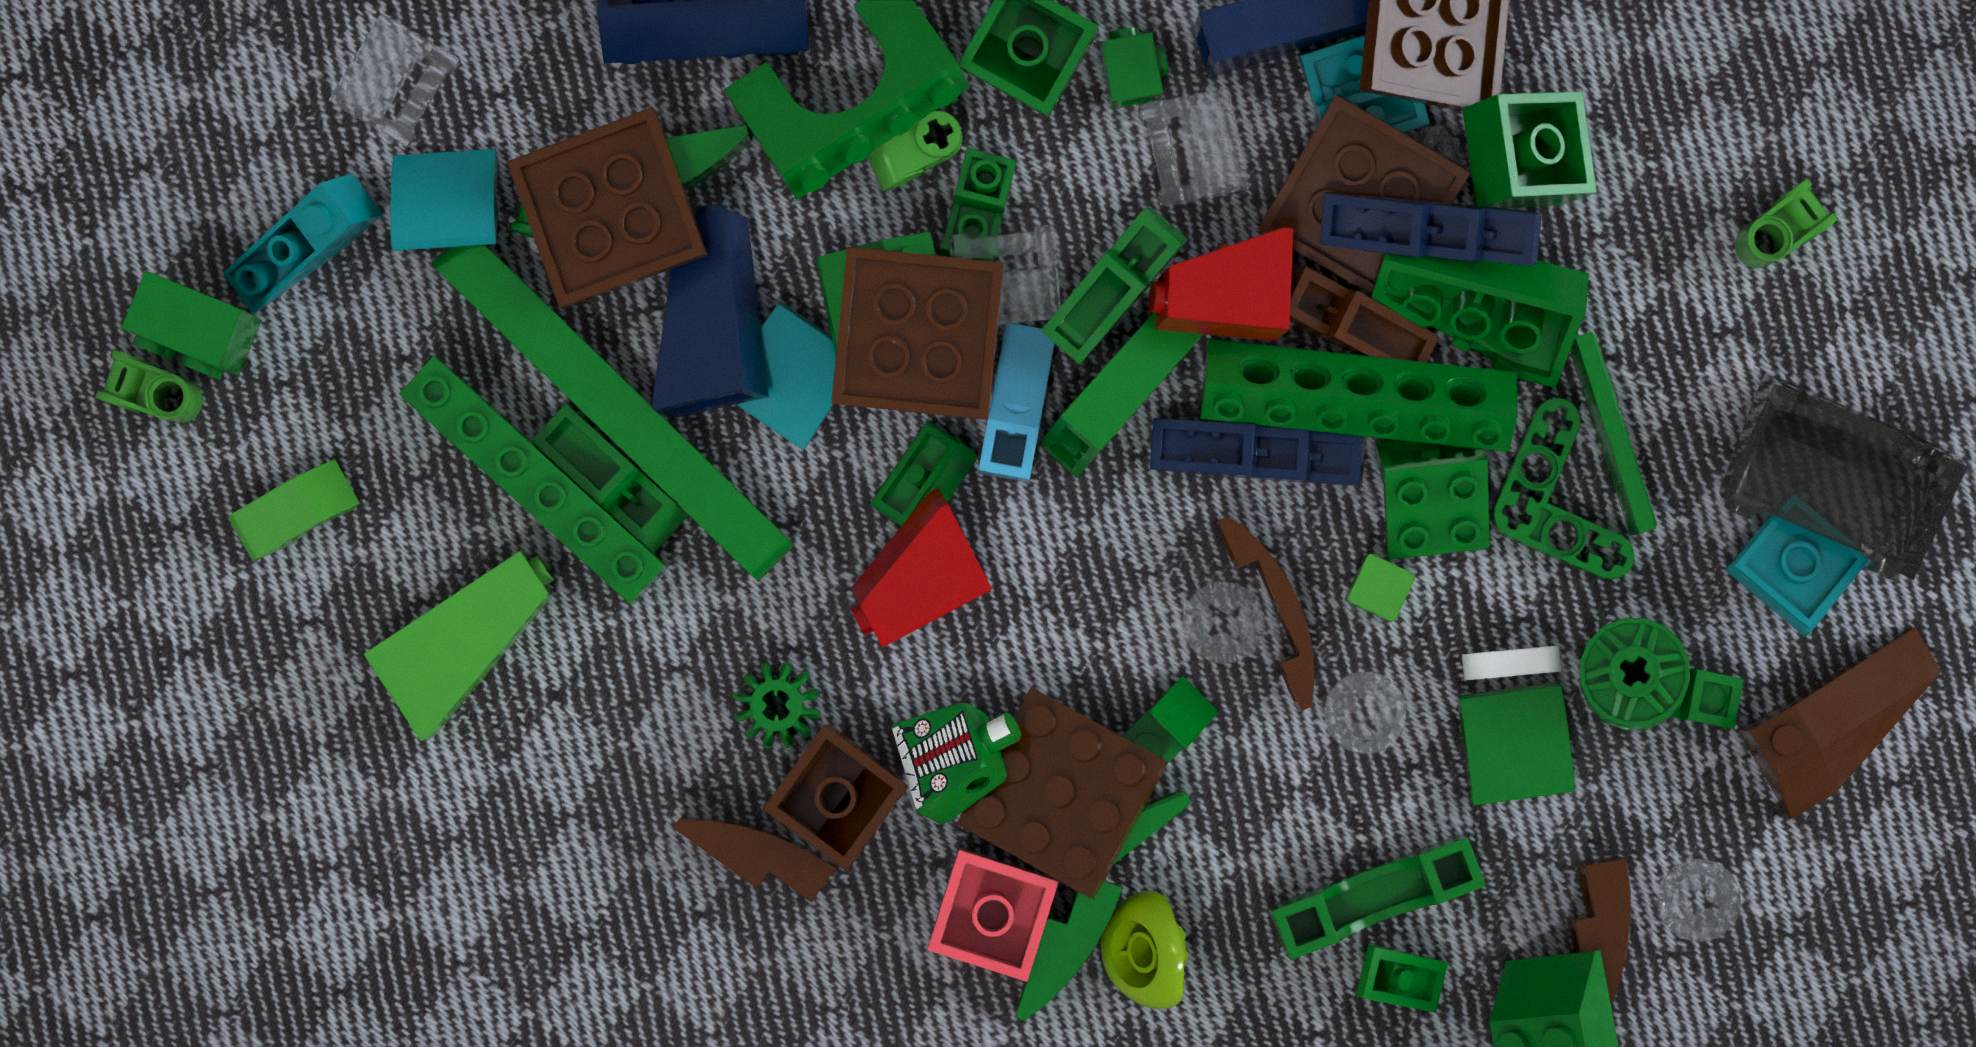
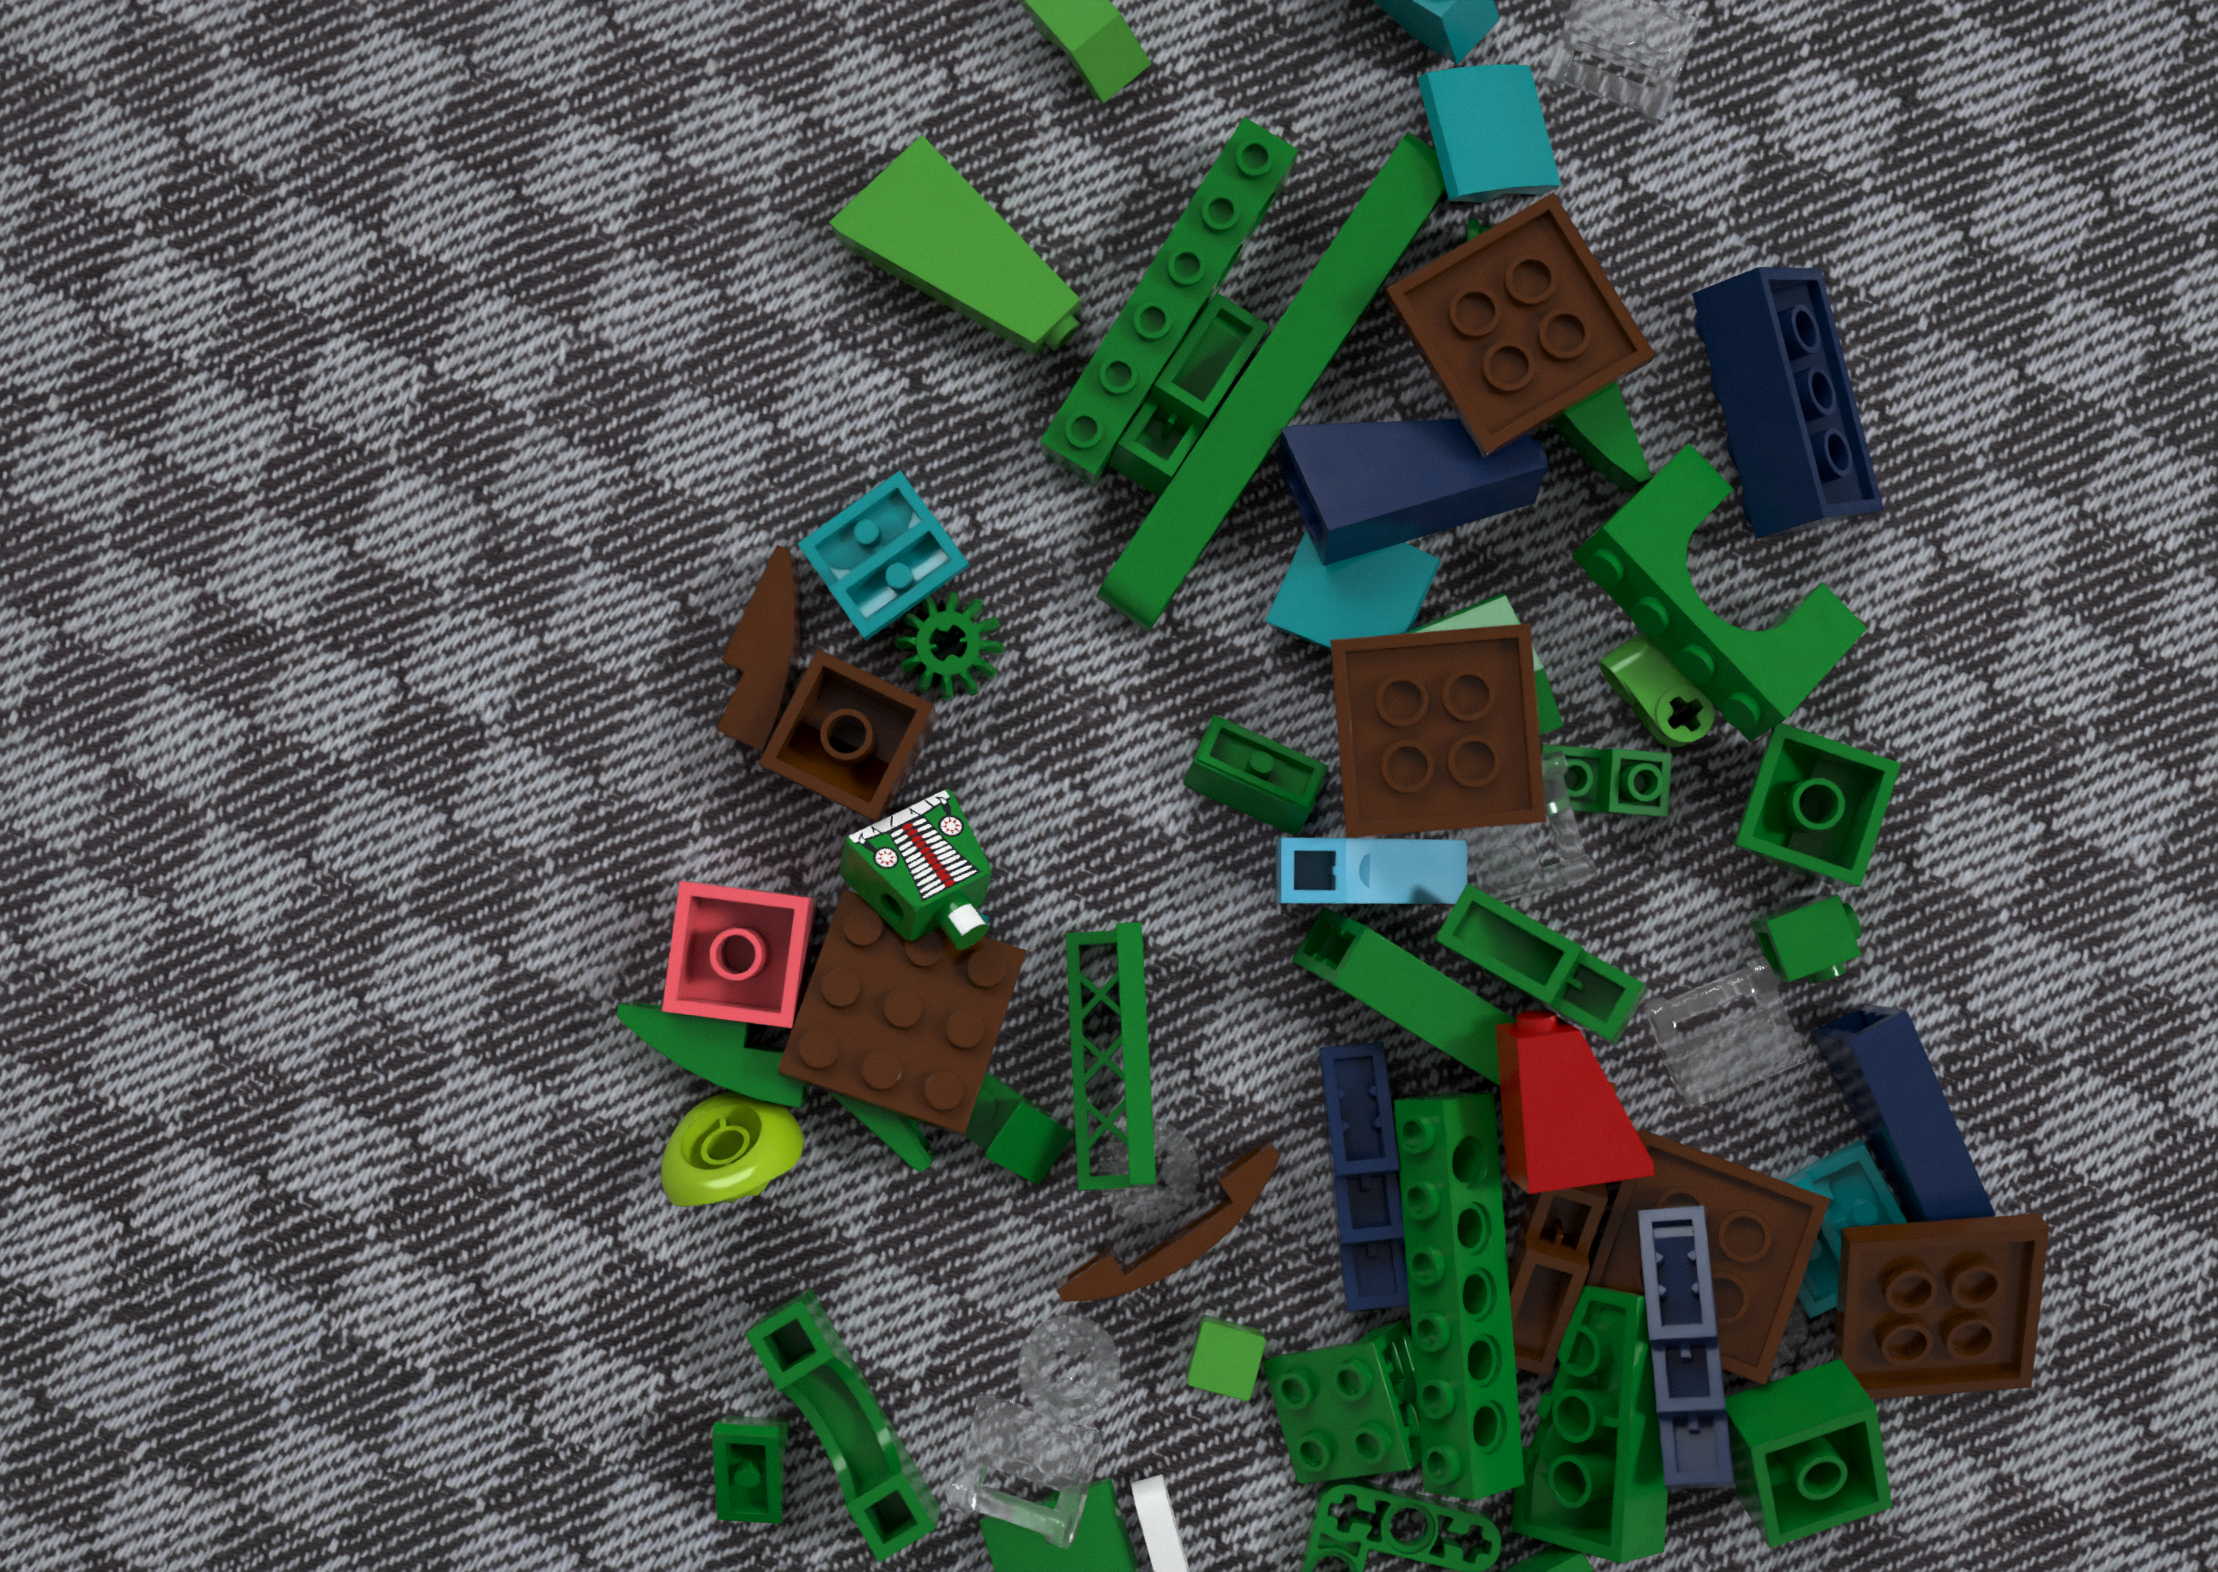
camera: 90 degrees right, 0 degrees up
(695, 745) = (883, 555): none -> teal slope
(918, 574) = (1139, 788): red slope -> none
(1127, 615) = (1135, 1057): none -> green fence
(1422, 753) = (1032, 1448): none -> clear plate

